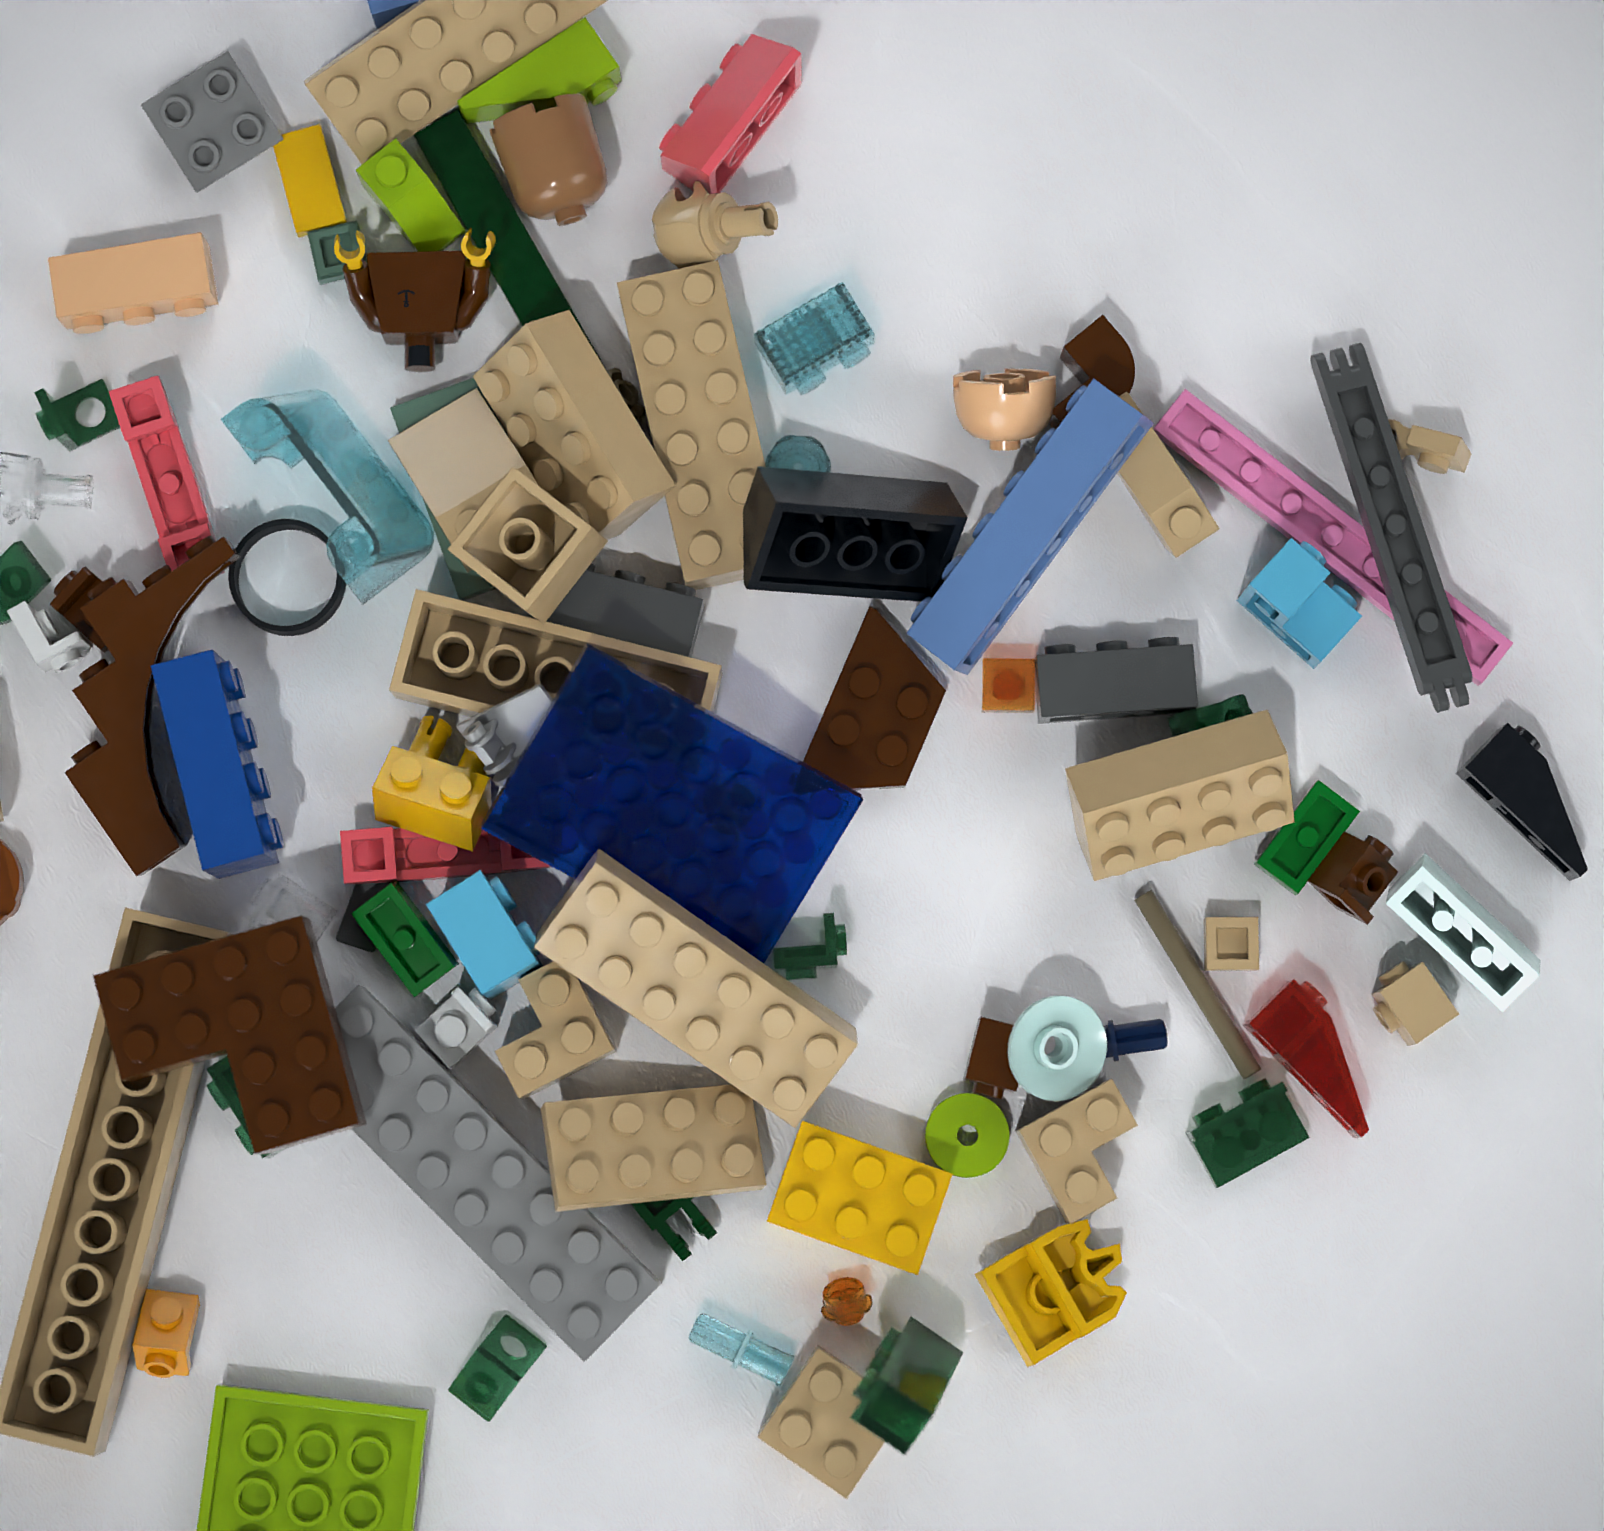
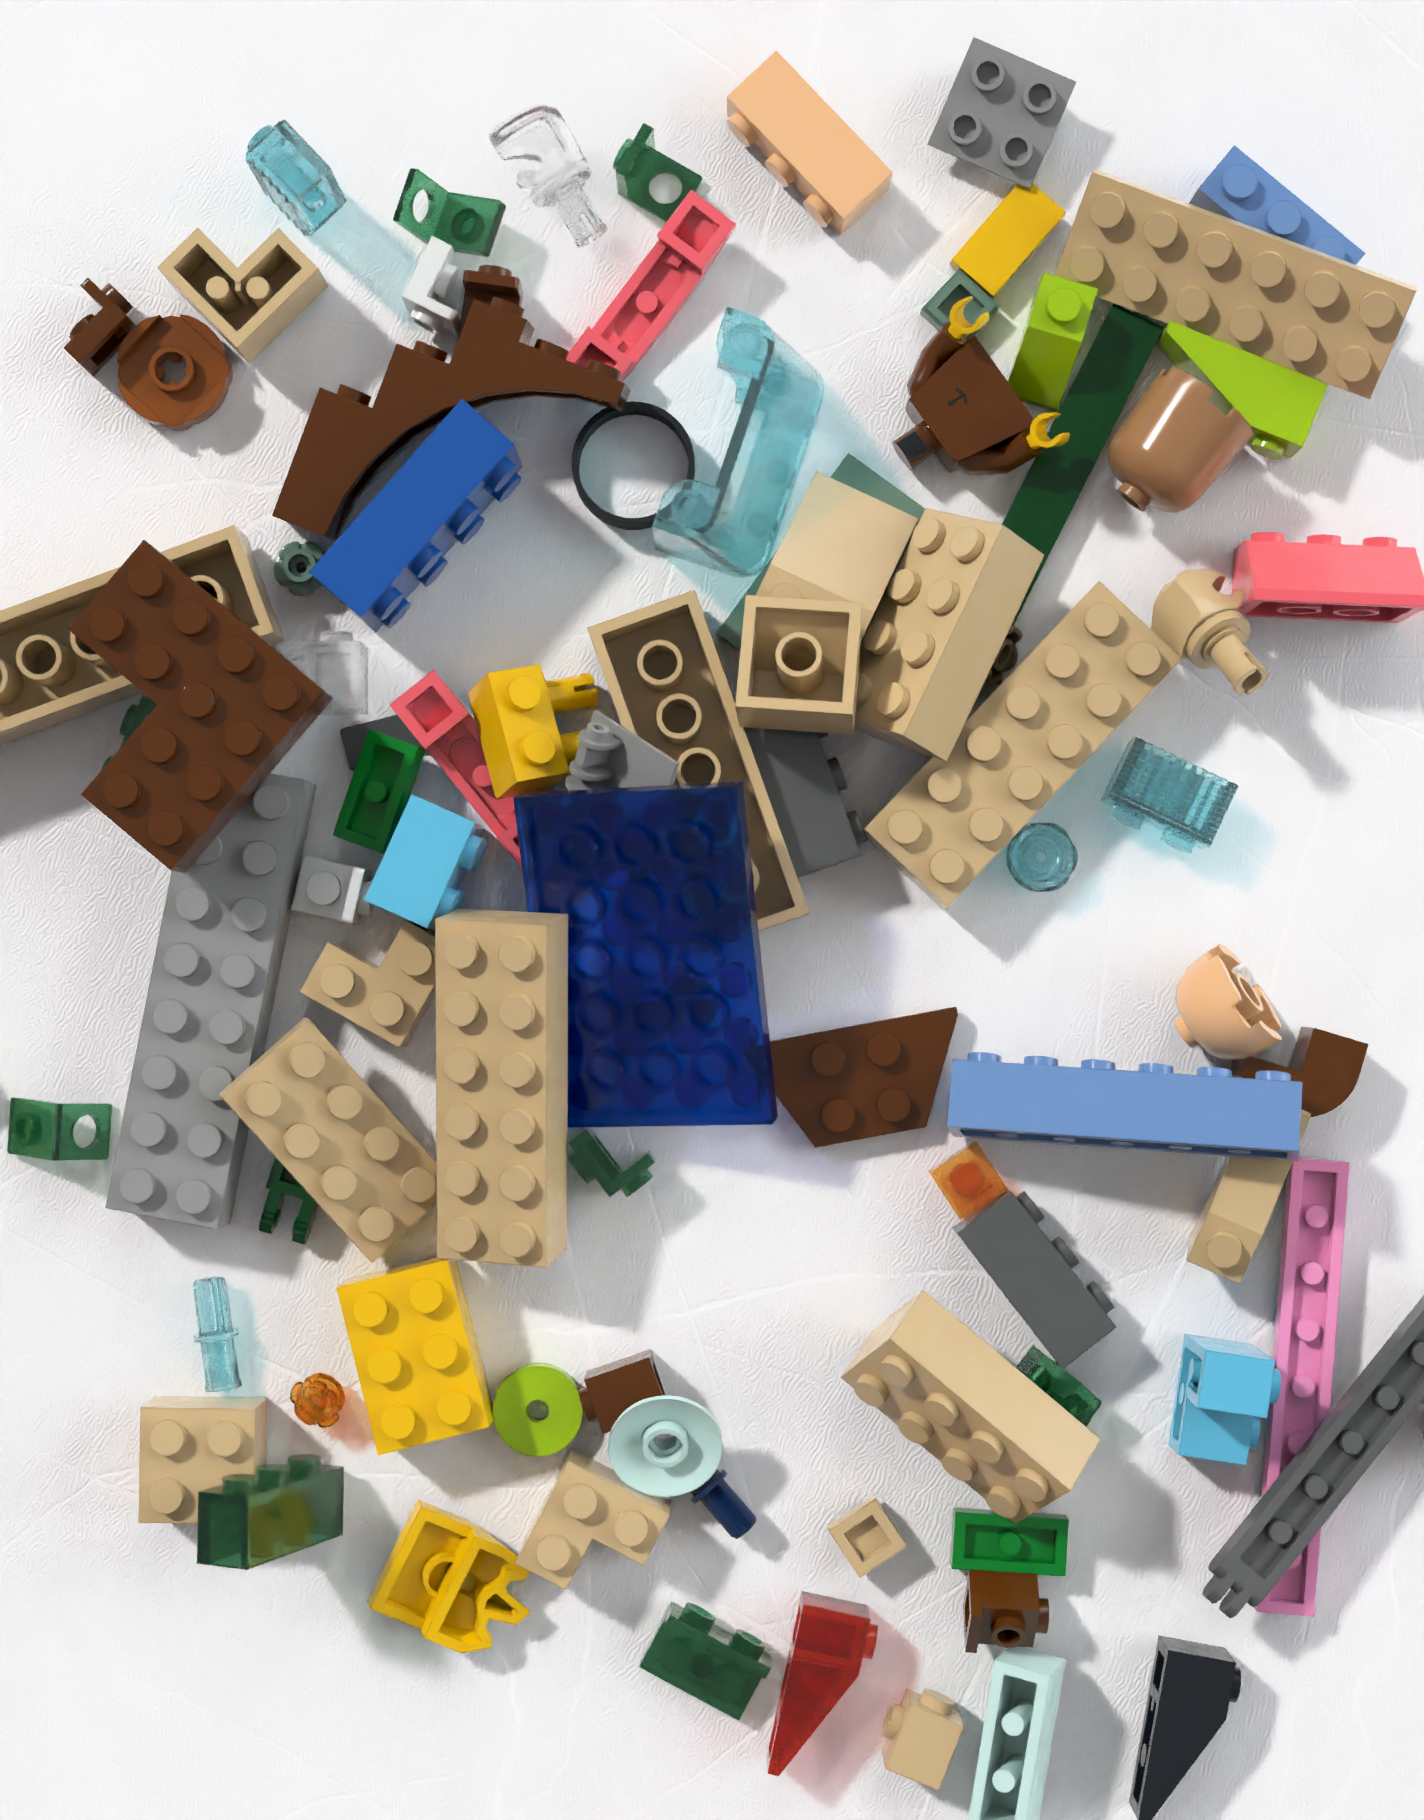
camera: 60 degrees right, 5 degrees up
(182, 897) = (286, 572): none -> sand green plate
(848, 534) = (1007, 948): black slope -> none
(1197, 984) = (810, 1528): dark tan bar -> none

